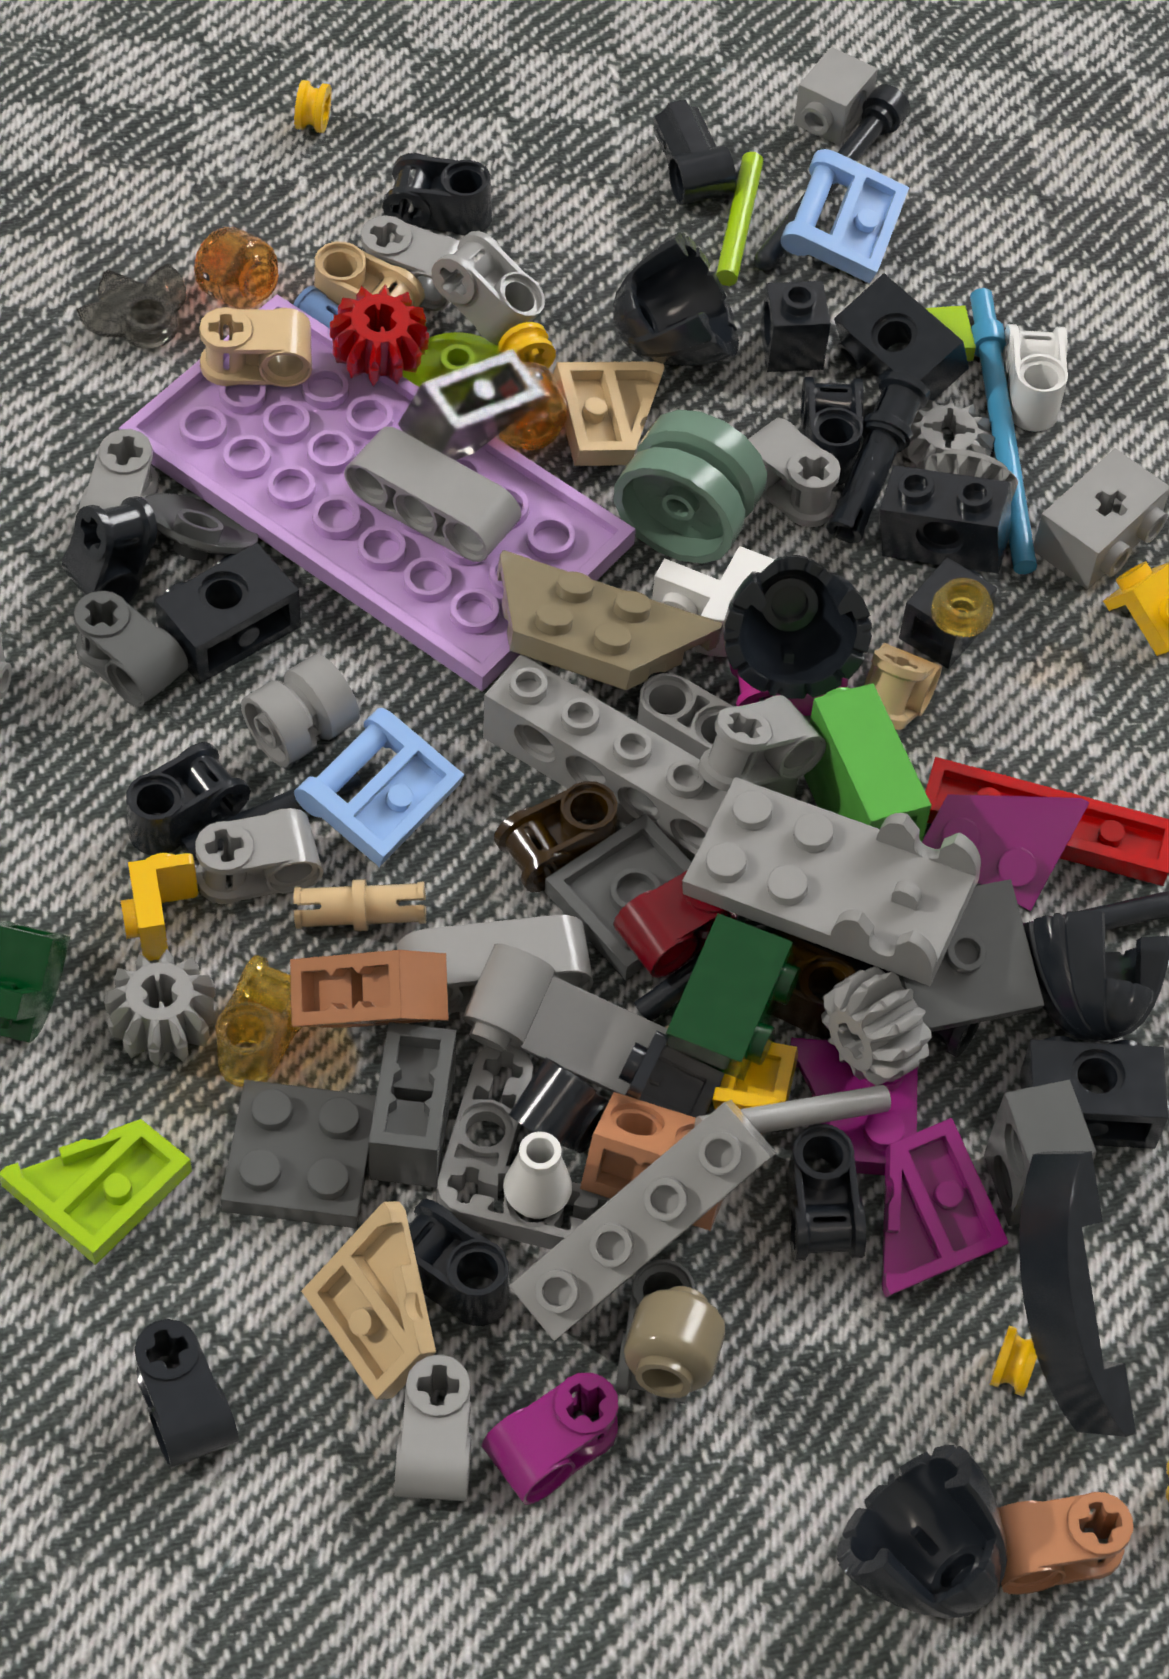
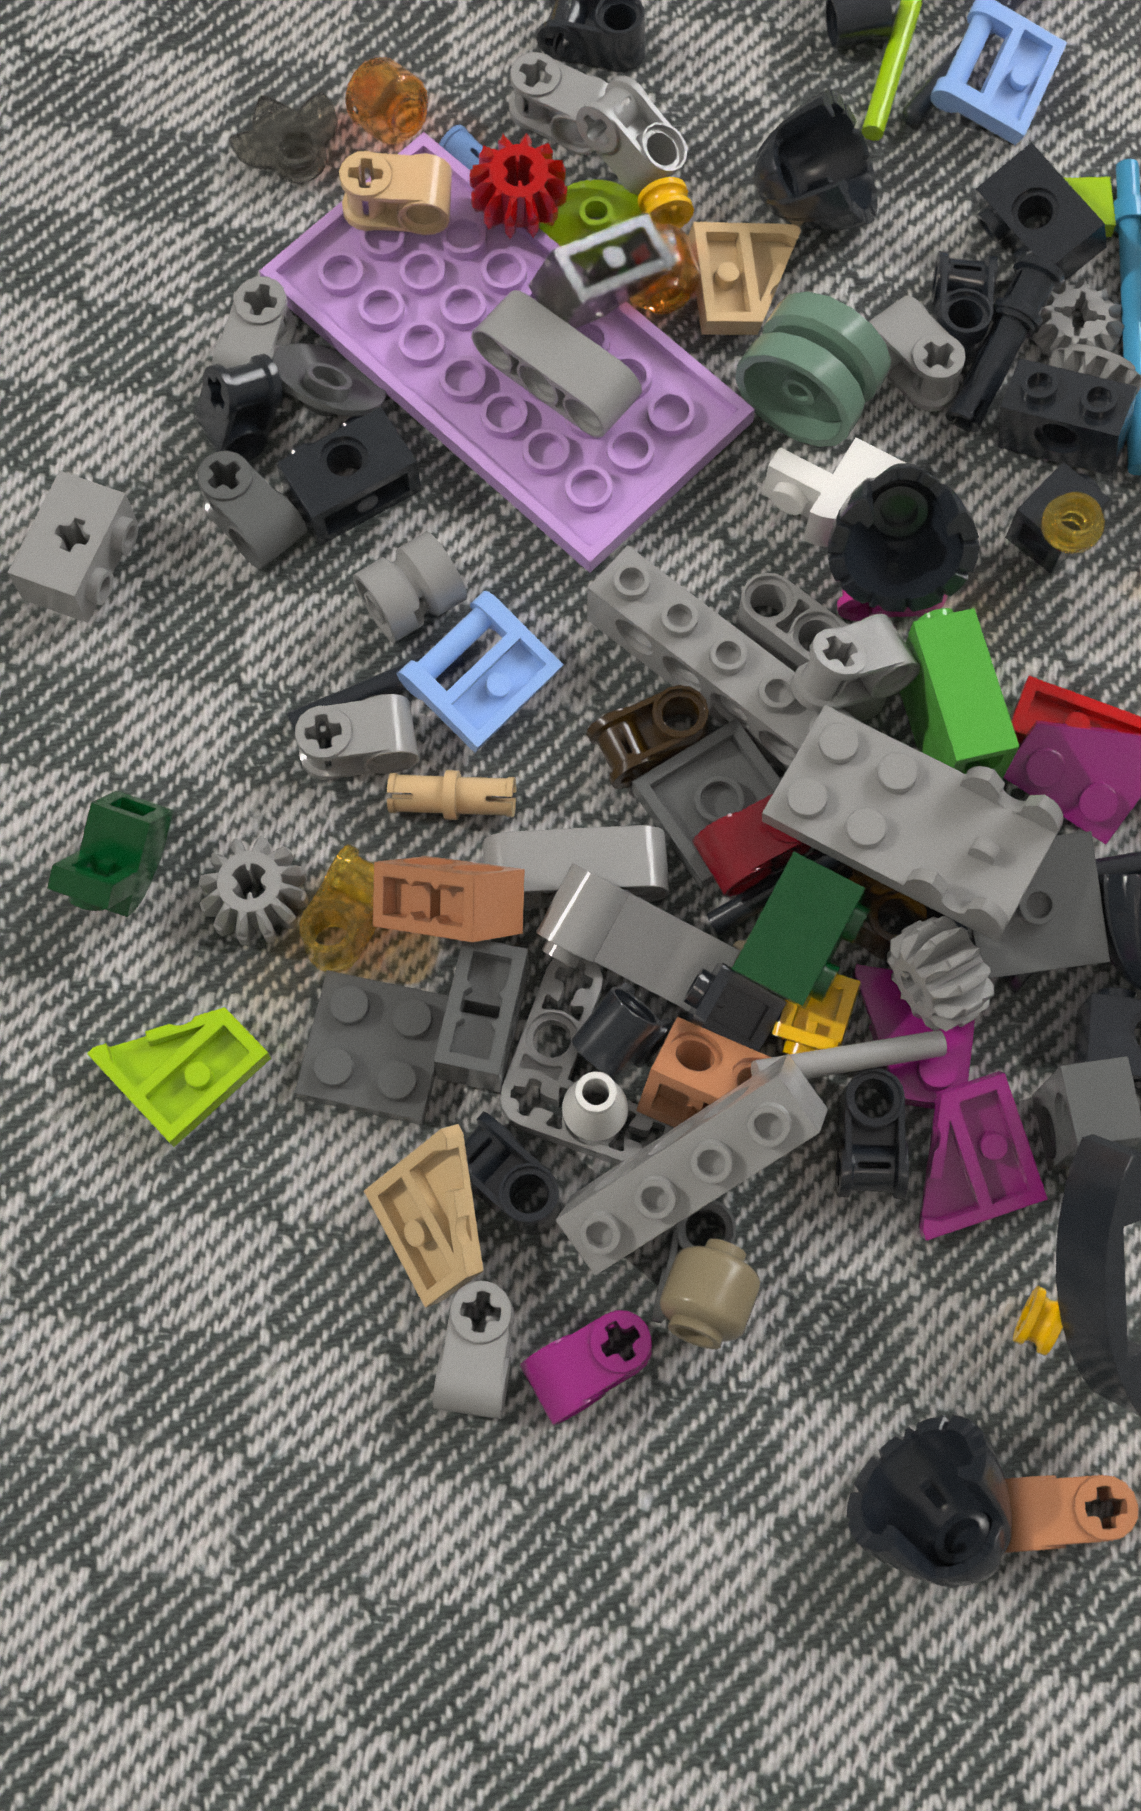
camera: 10 degrees right, 15 degrees up
(153, 882) = (245, 791): yellow bracket -> none
(184, 1401) = (245, 1304): black piece -> none
(187, 793) = (298, 666): black piece -> none
(344, 268) = (495, 110): tan piece -> none
(595, 626) = (703, 517): dark tan wing -> none
(795, 326) = (935, 192): black brick -> none
(903, 683) = (1001, 595): tan piece -> none

